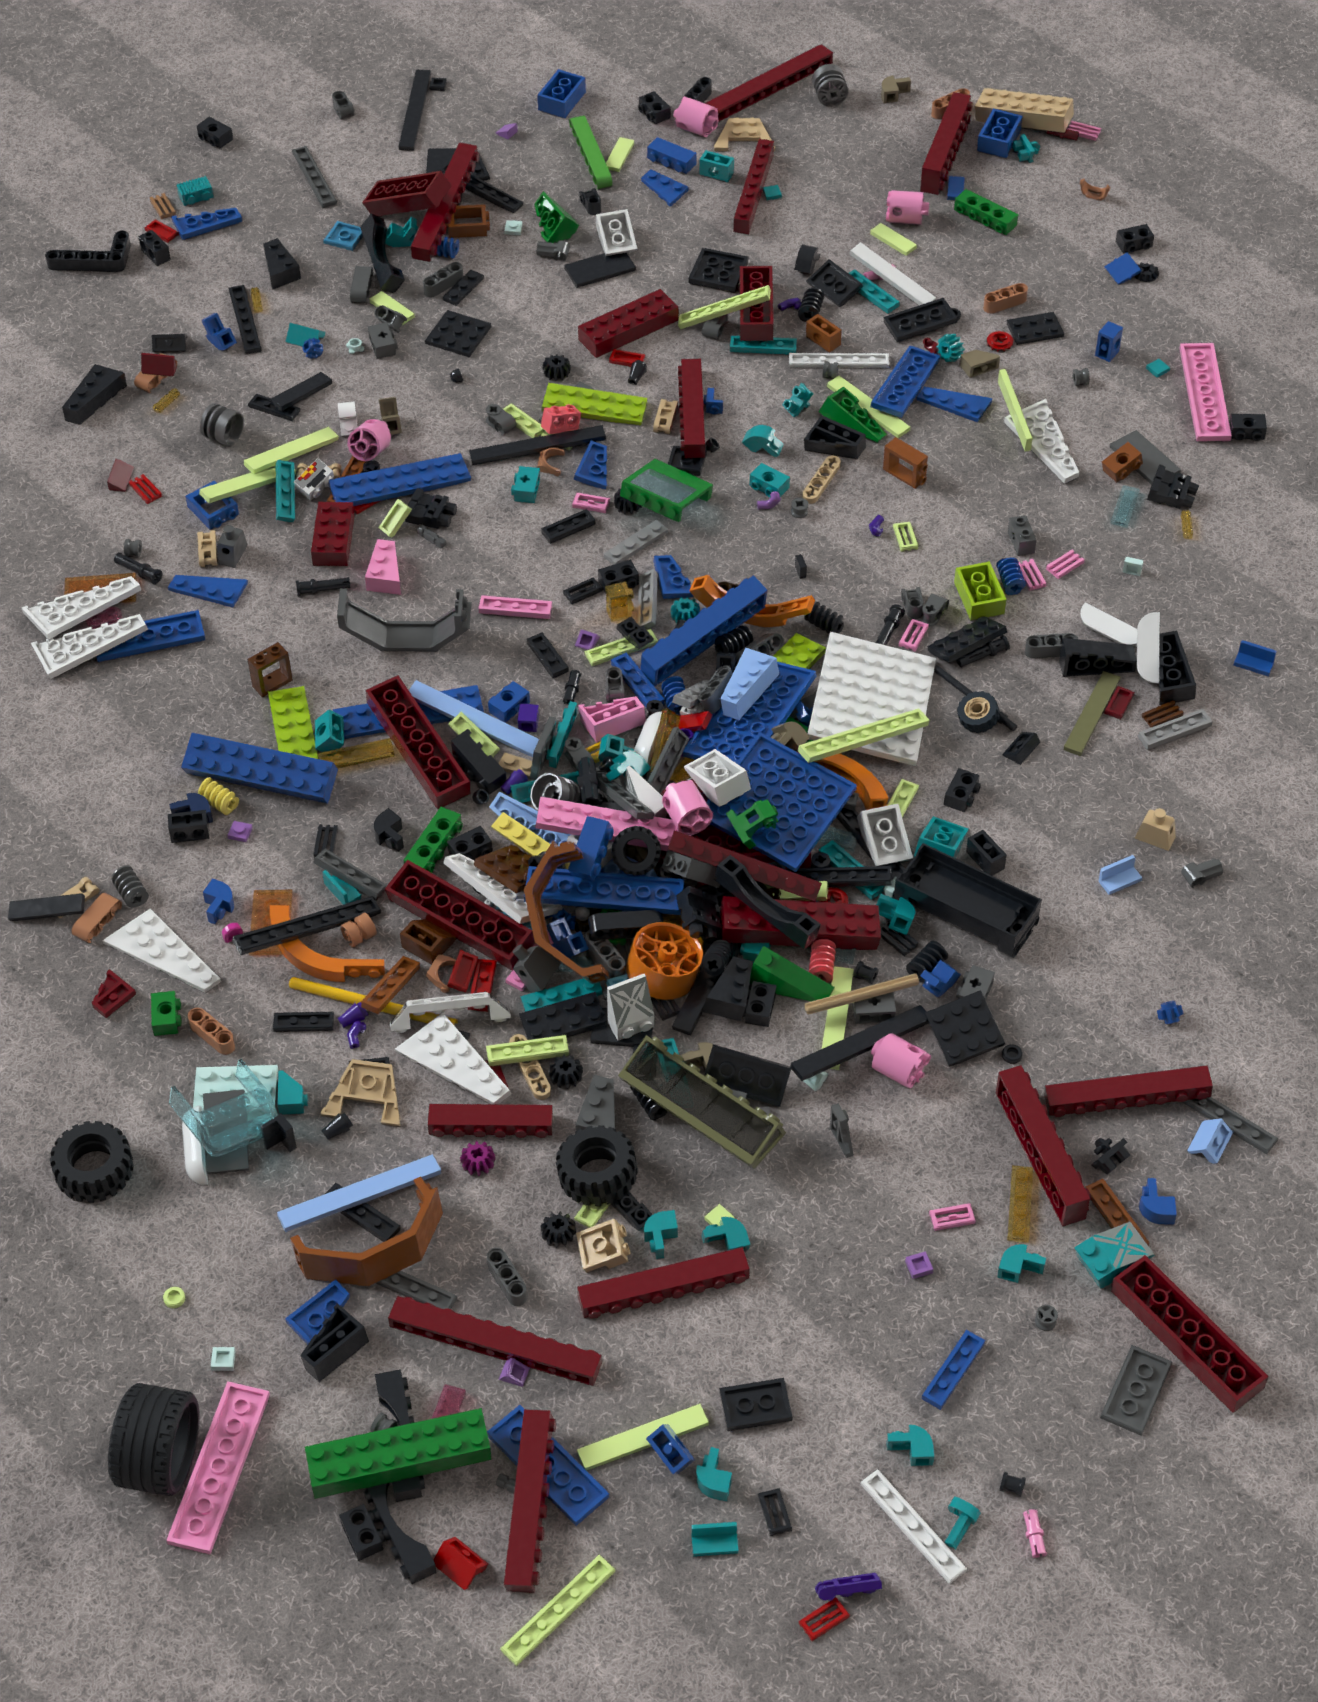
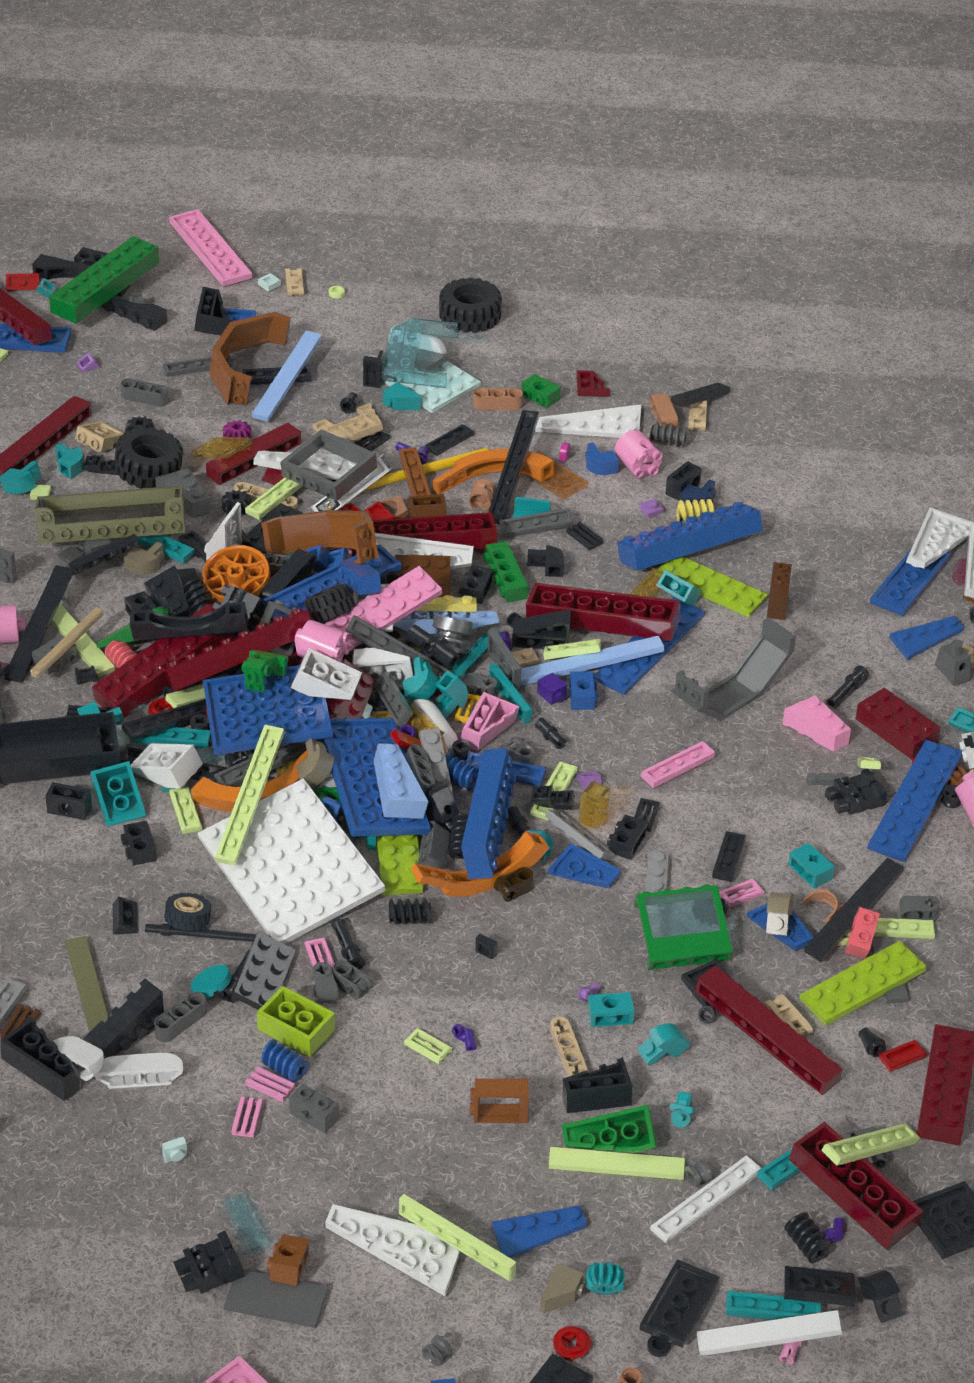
camera: 135 degrees right, 10 degrees down
(153, 1439) = (246, 208): black tyre -> none
(188, 873) = (638, 454): none -> bright pink cylinder
(197, 1343) = (294, 282): none -> tan plate
(447, 1527) = (46, 288): none -> teal tile
(449, 1401) = (108, 329): clear pink plate -> none
(473, 1048) = (365, 464): none -> dark grey window
(495, 1340) = (114, 364): dark red brick -> none
(515, 1139) = (221, 447): none -> clear yellow tile
(547, 655) = (602, 744): black plate -> none
(556, 367) = (946, 994): black gear -> none
(593, 456) = (779, 910): none -> dark tan brick
(712, 406) = (763, 1053): blue bracket -> none
(799, 507) = (553, 1004): dark grey wheel -> none
(823, 333) = (751, 1204): dark orange brick -> none
(905, 381) = (609, 1209): blue plate -> none
(927, 959) = (43, 702): black piece -> none
(930, 345) = (636, 1284): dark red arm -> none
(940, 978) = (22, 696): blue brick -> none
(1009, 654) = (211, 980): none -> teal tile
(1119, 702) = (71, 1010): dark red tile -> none
(1186, 524) = (162, 1243): clear yellow axle -> none

